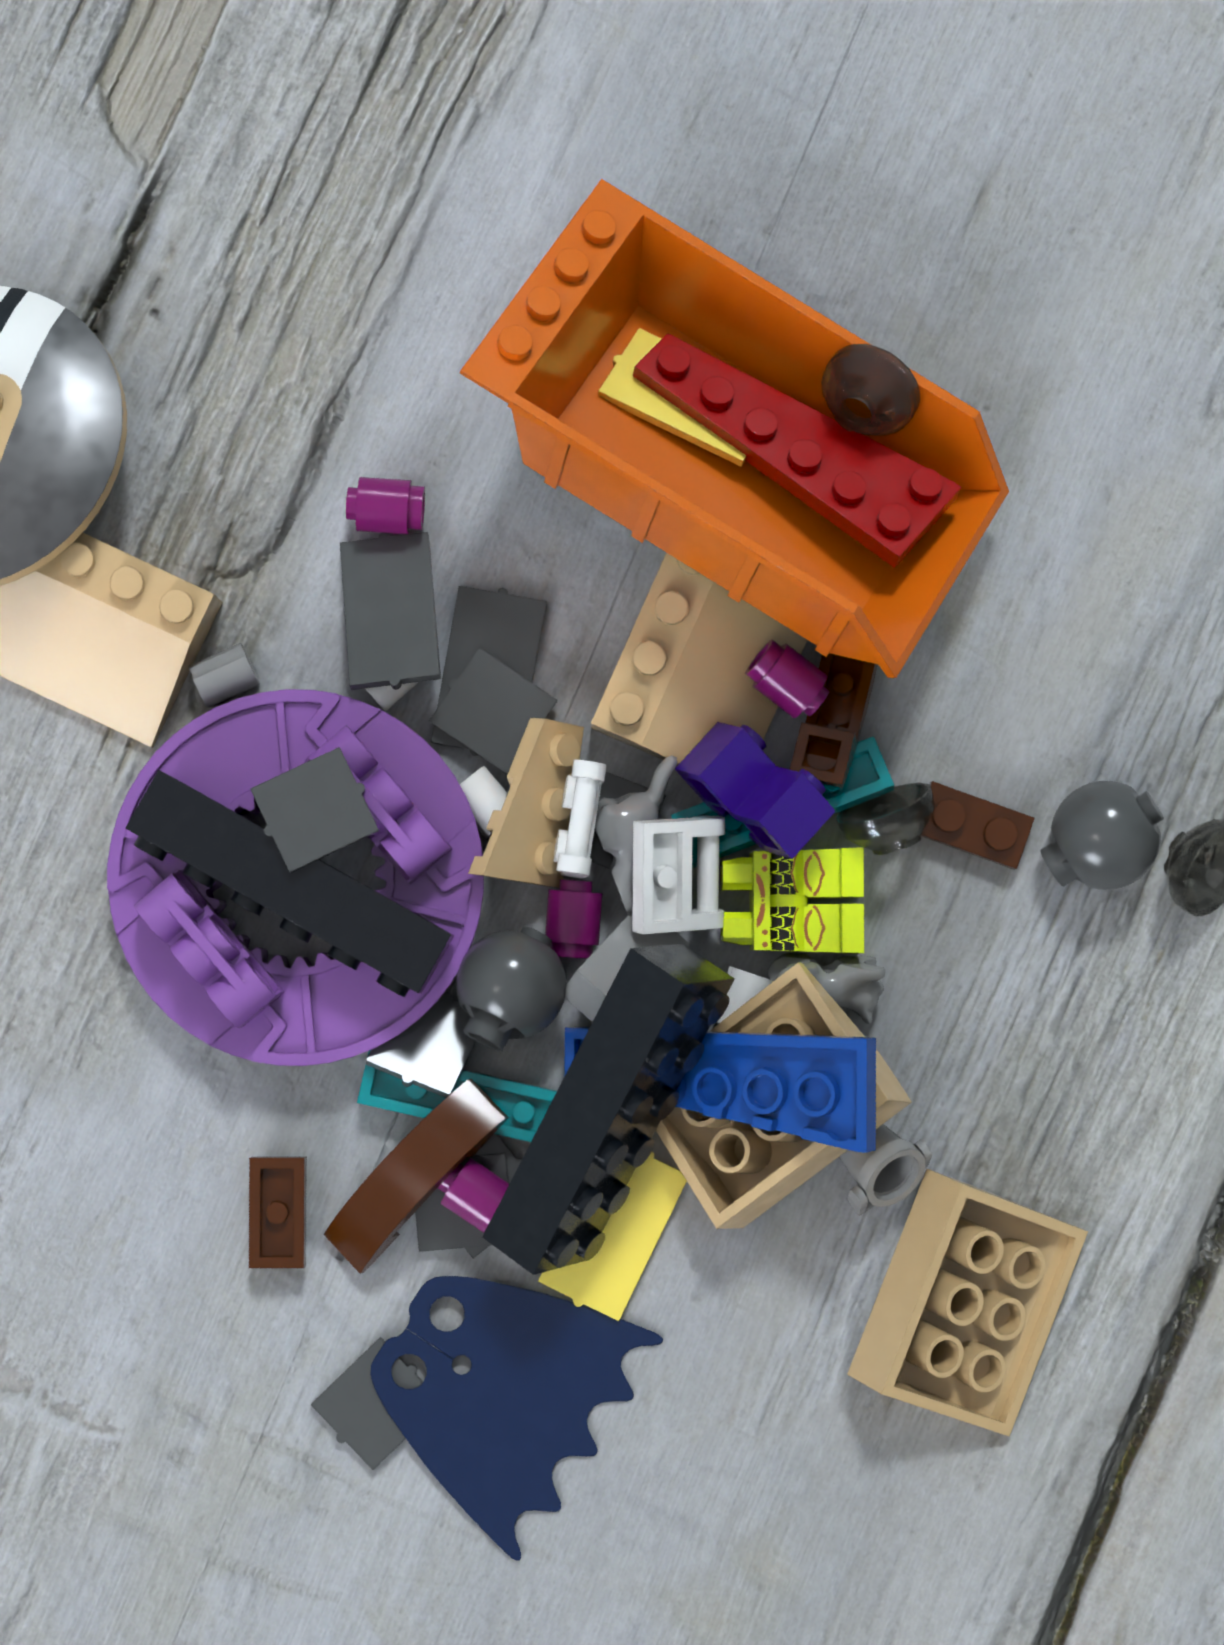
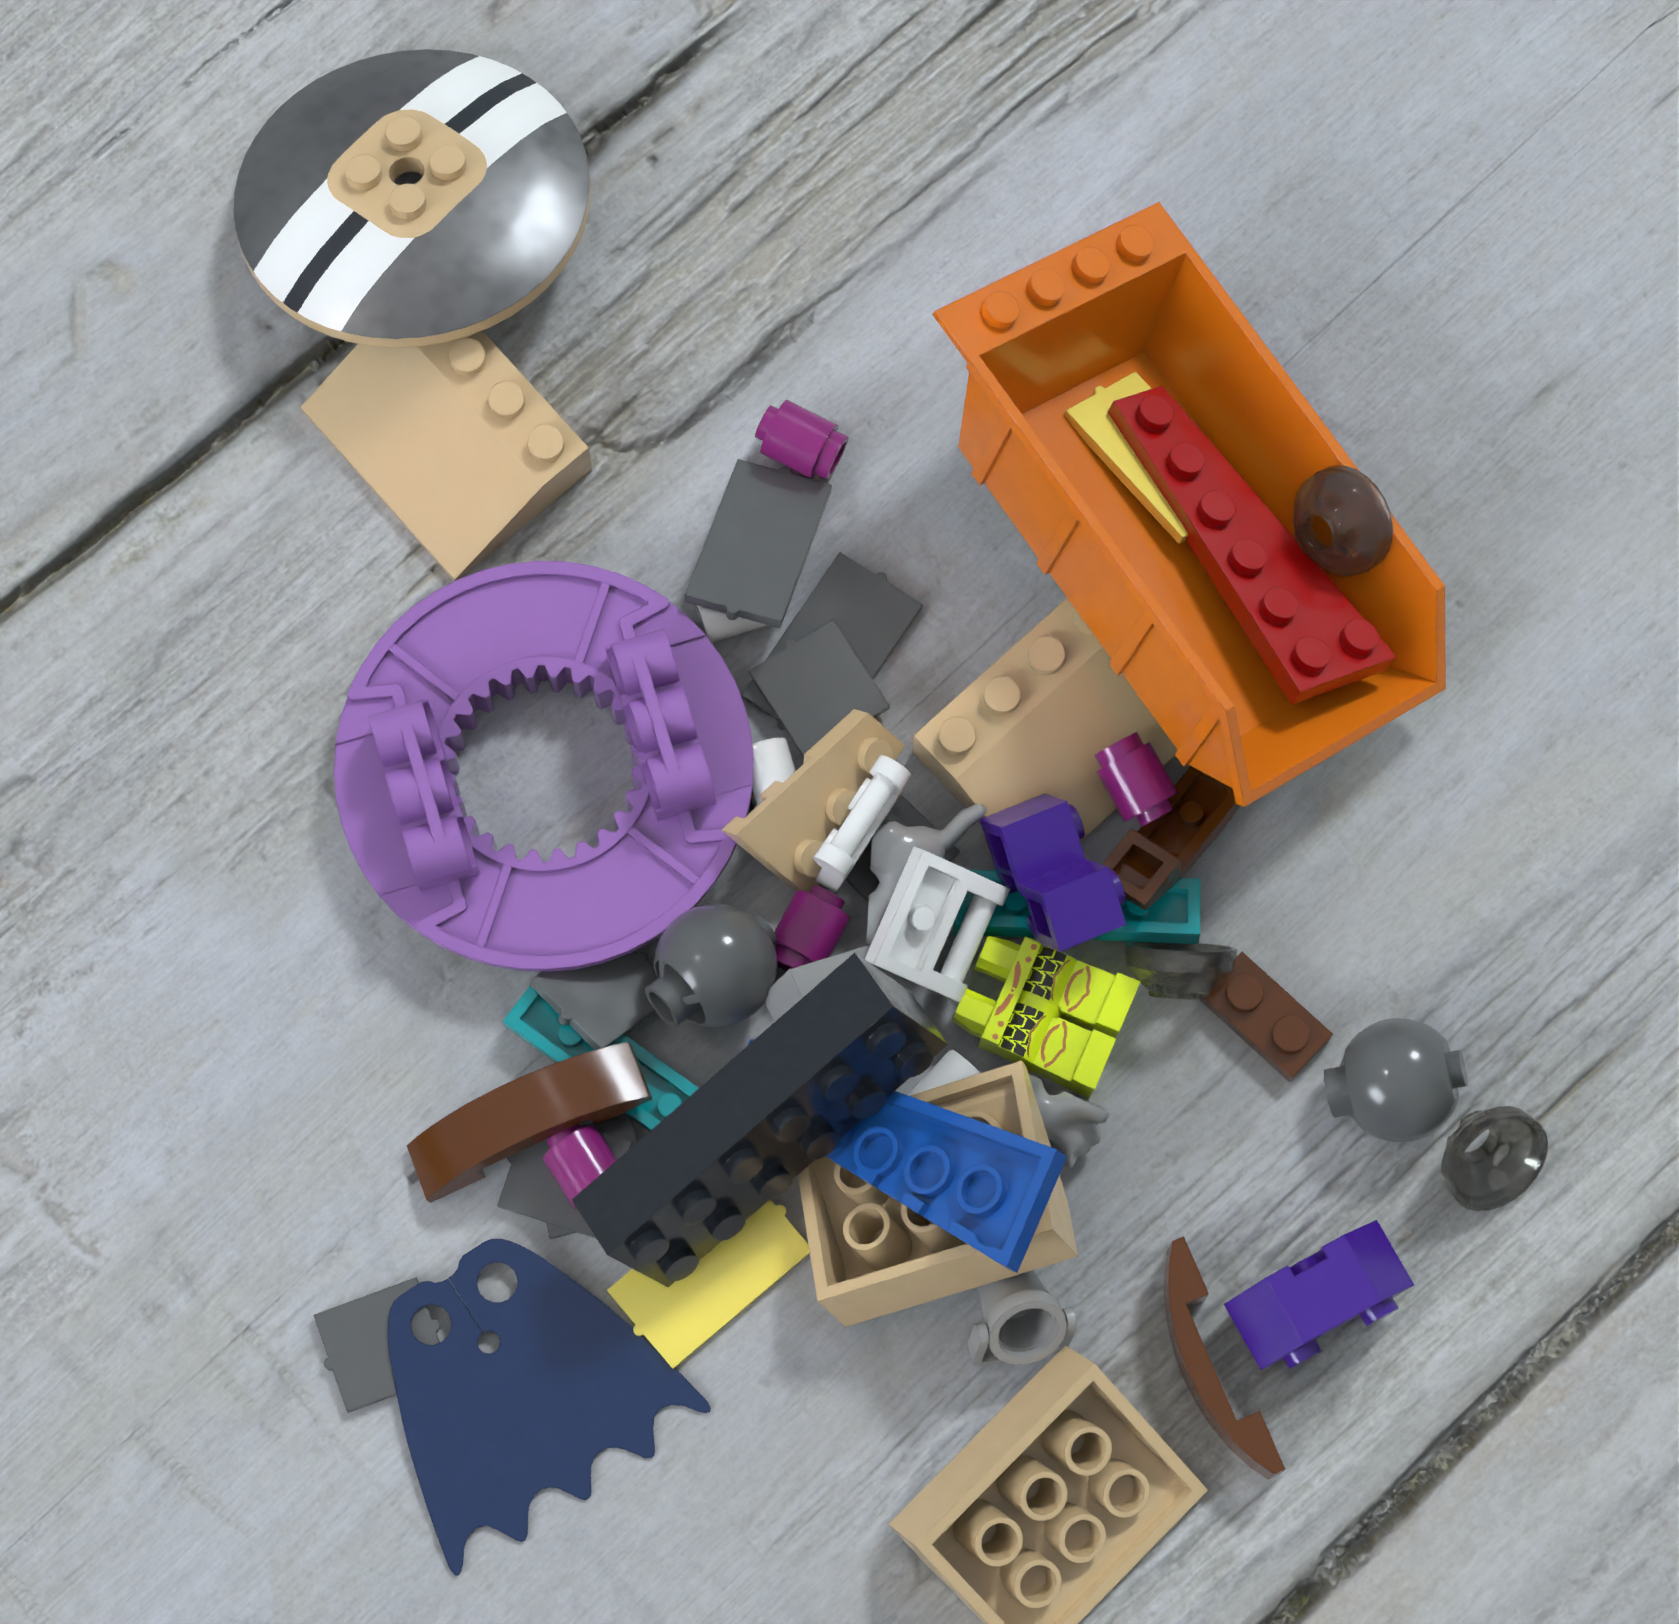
camera: 20 degrees right, 10 degrees down
(224, 675) = (562, 537): light grey piece -> none
(277, 1211) = (370, 1099): reddish brown plate -> none
(310, 900) = (537, 762): black brick -> none
(314, 810) = (594, 693): dark grey piece -> none
(1002, 1083) = (1245, 1437): none -> reddish brown slope
(1116, 1041) = (1318, 1294): none -> dark purple brick

